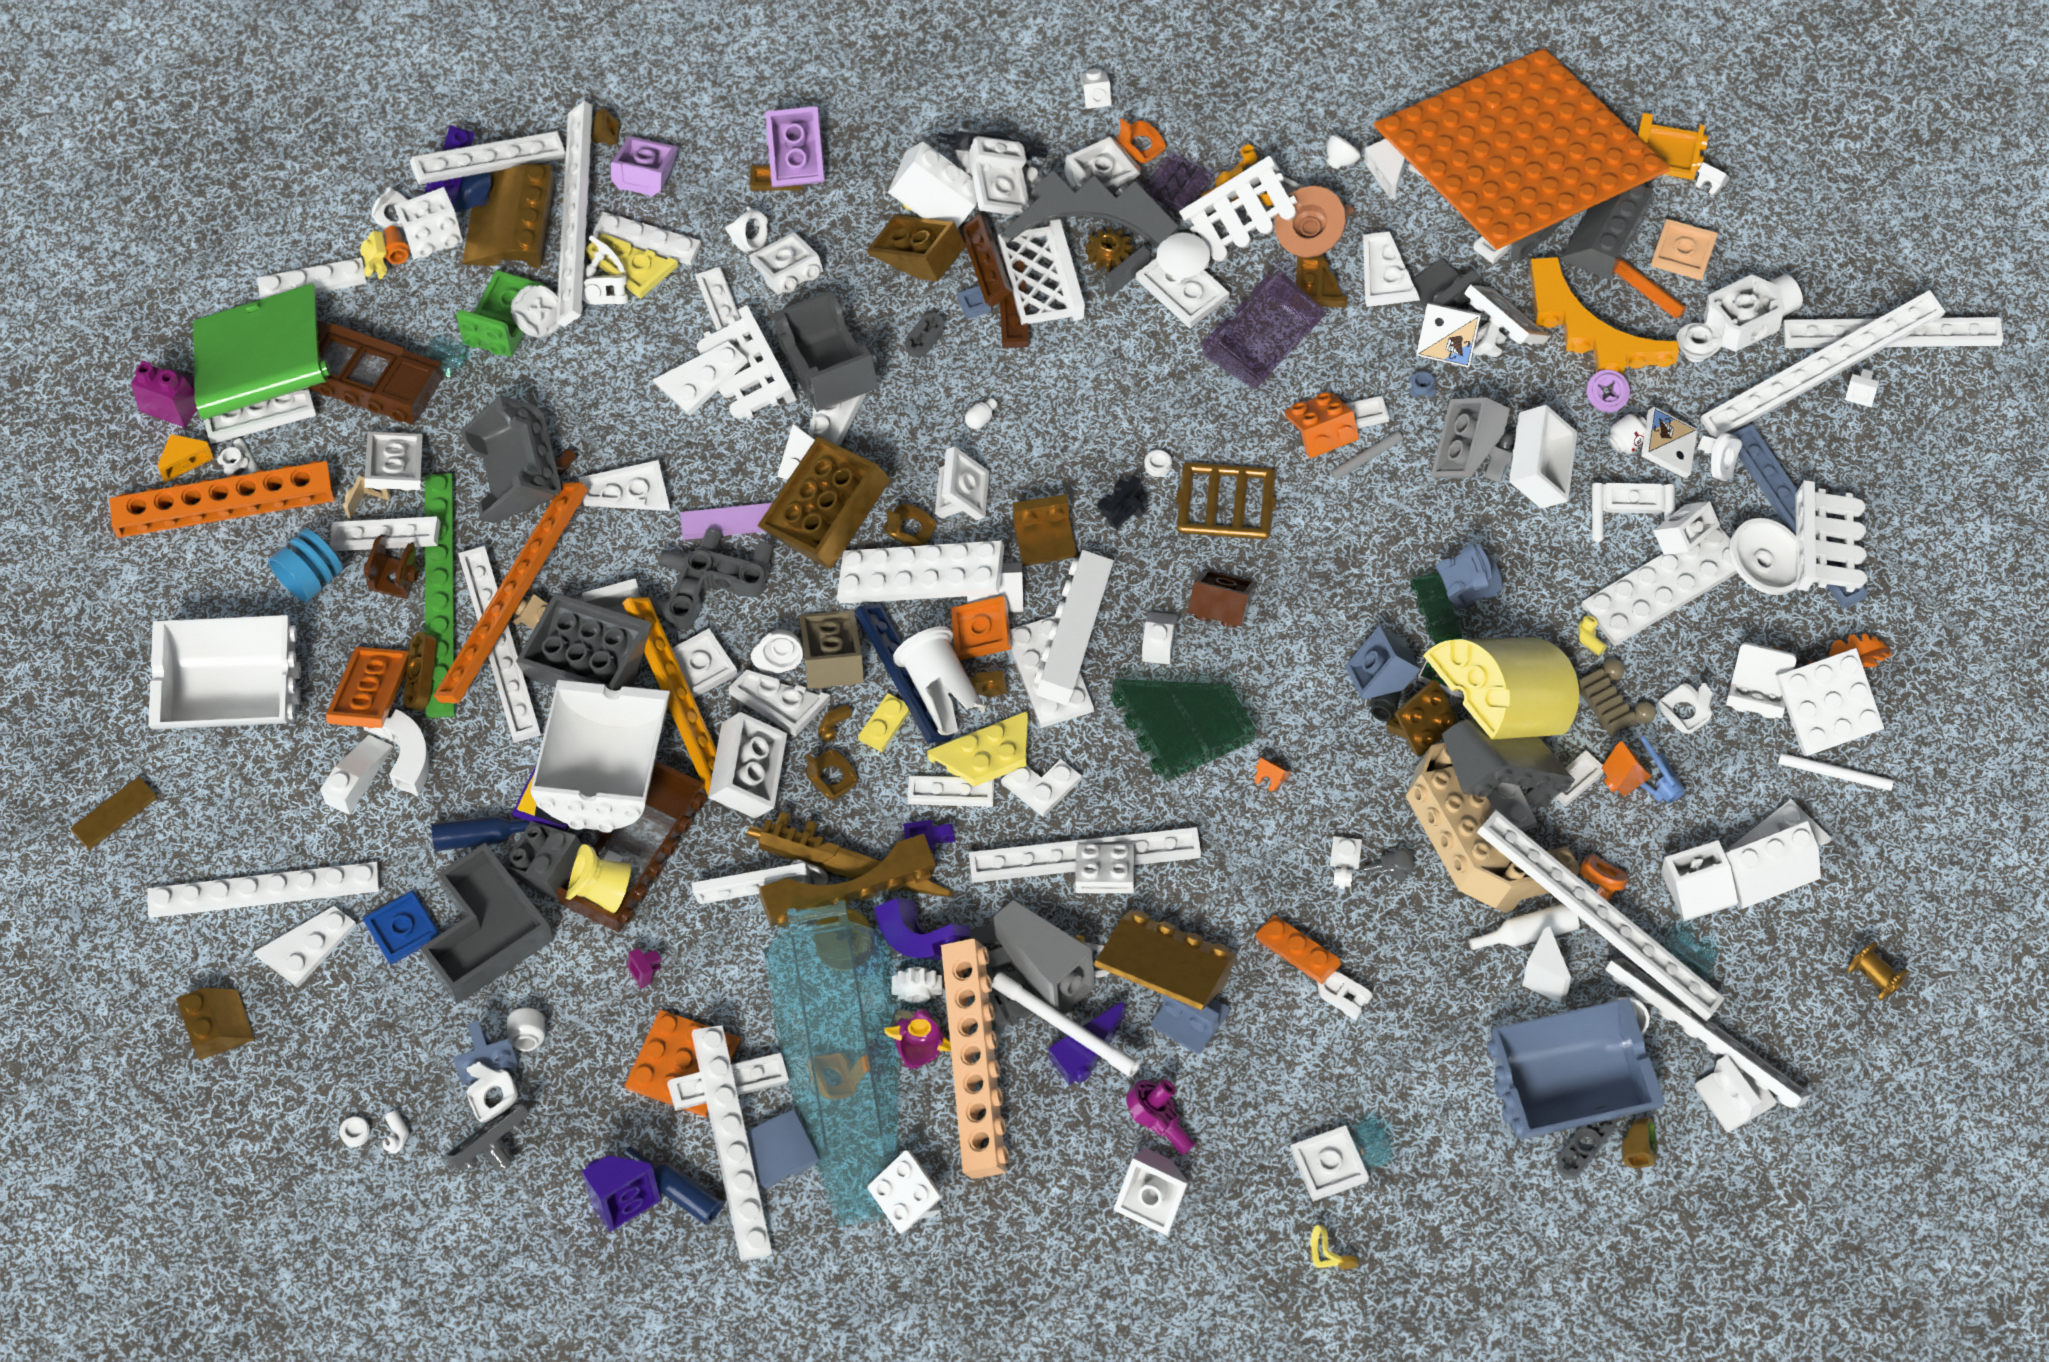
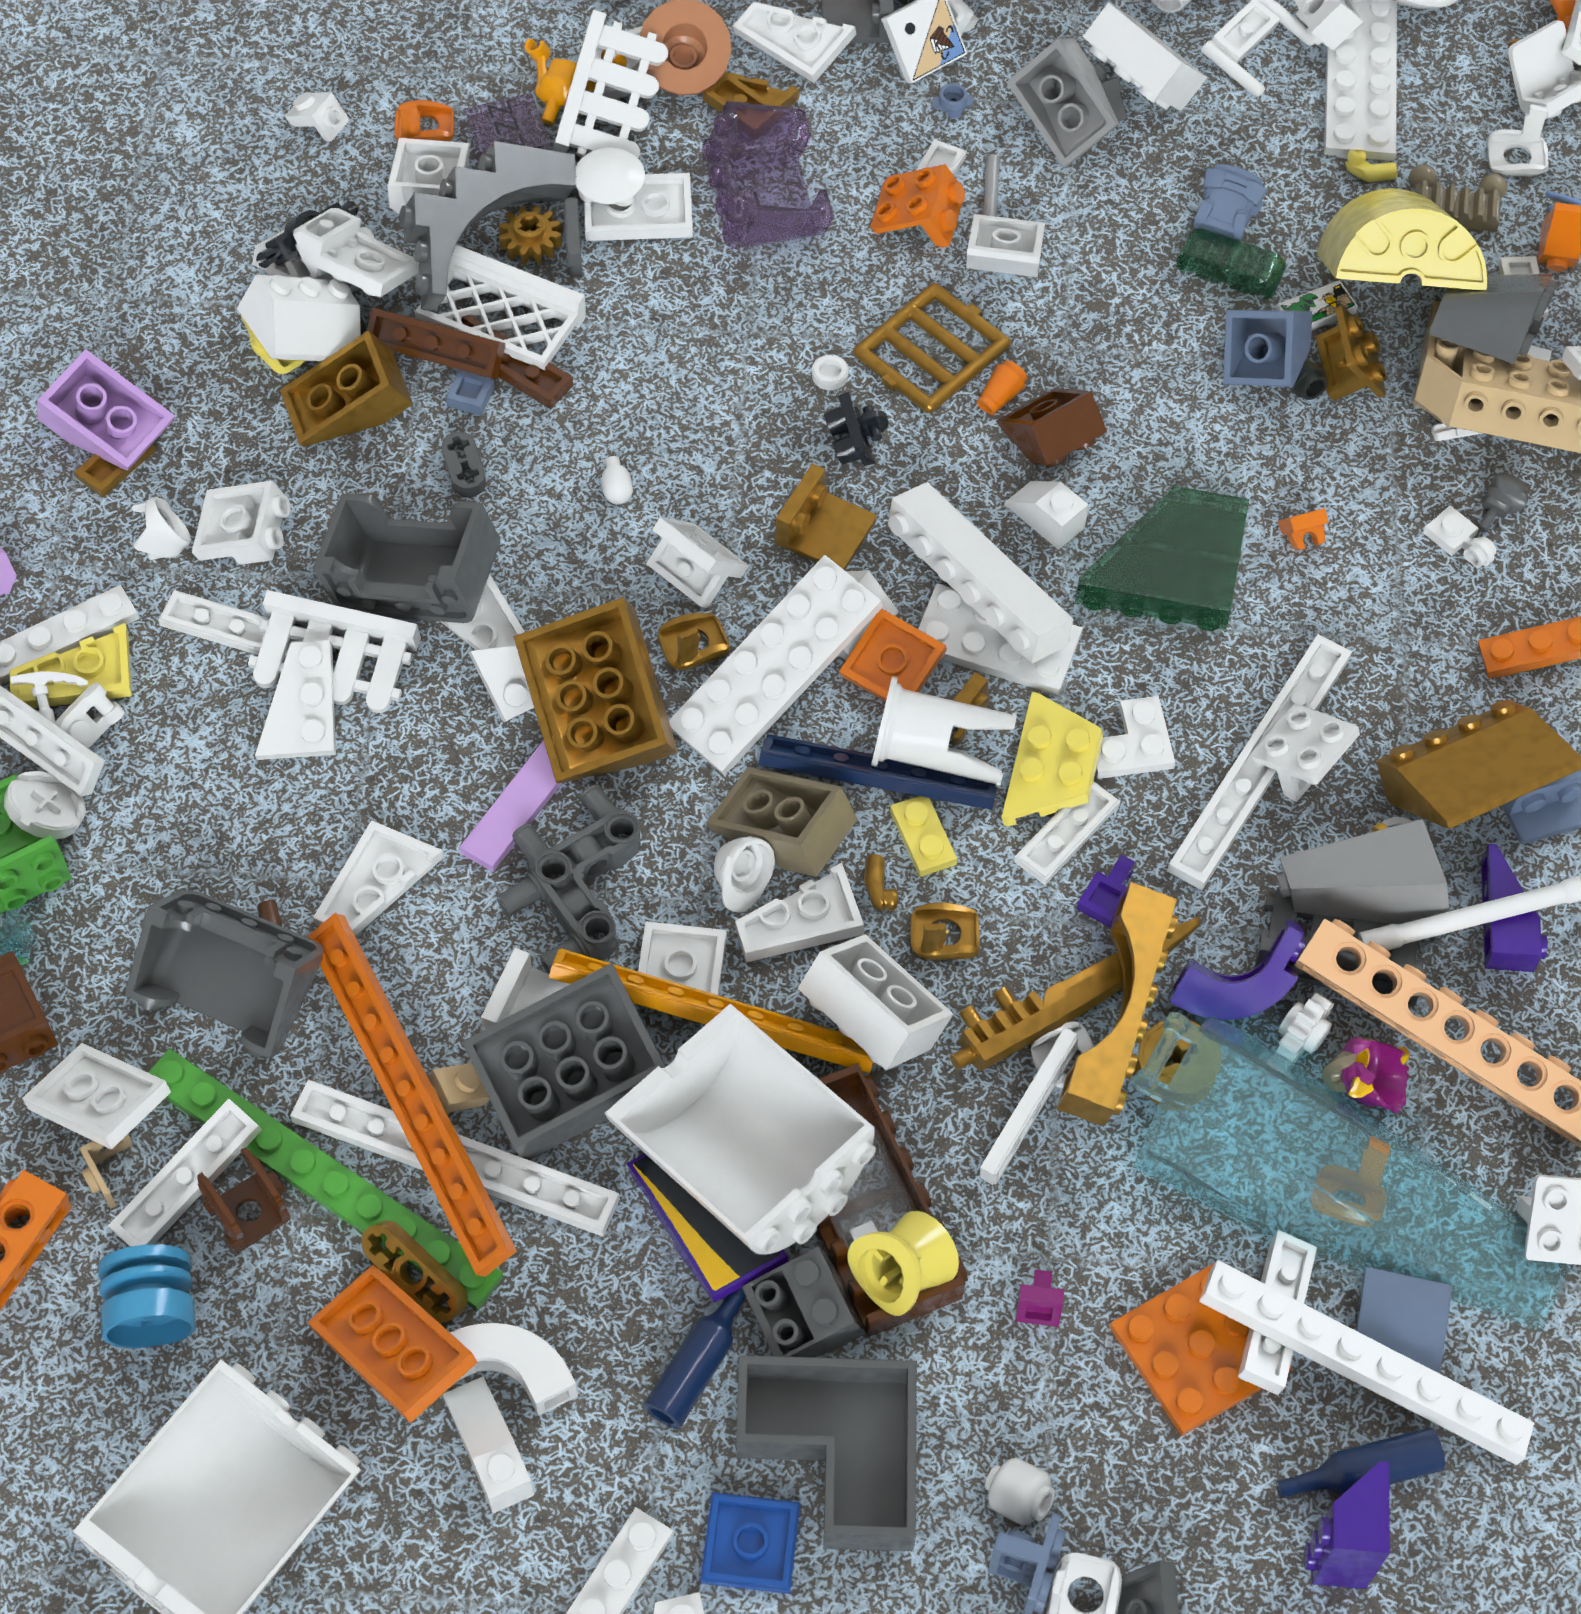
camera: 55 degrees left, 0 degrees up
(1226, 554) = (1003, 385): none -> orange cone
(1331, 483) = (1005, 245): none -> white slope

